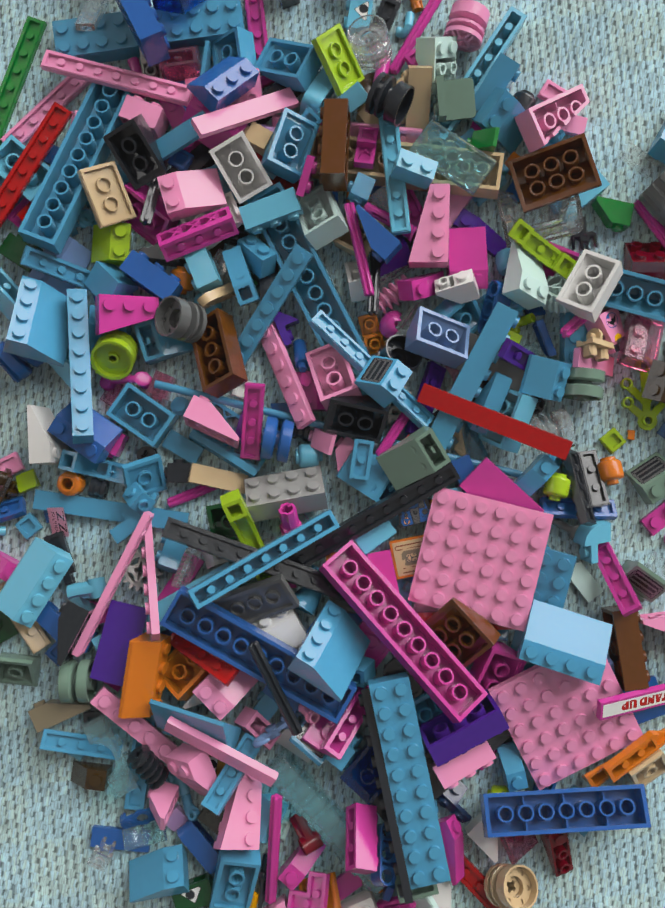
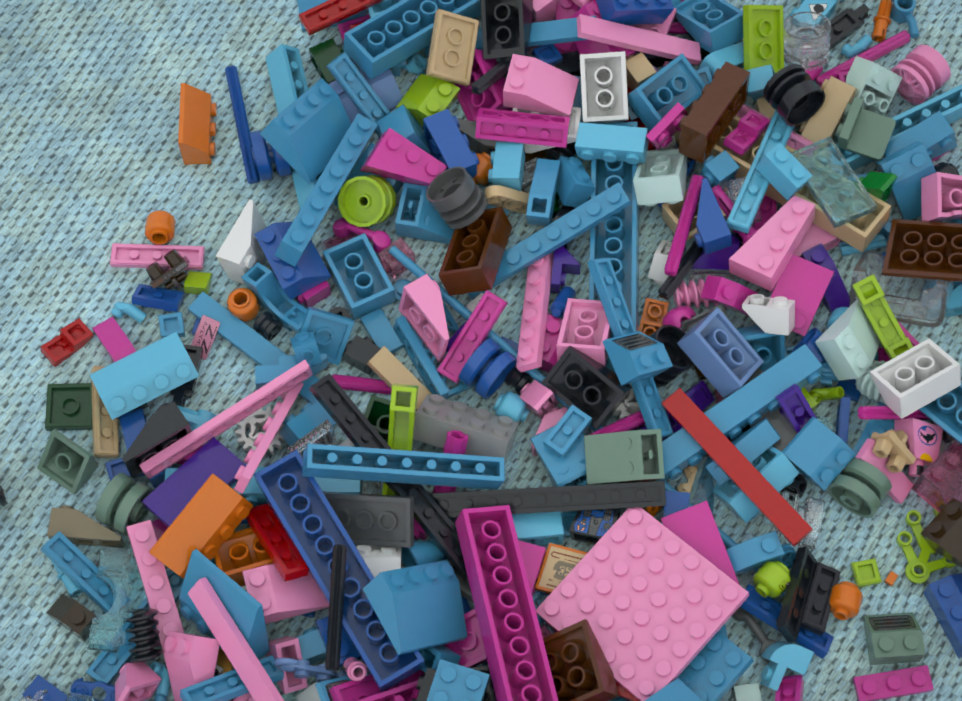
camera: 30 degrees right, 20 degrees down
(584, 237) = (944, 341): black piece -> none

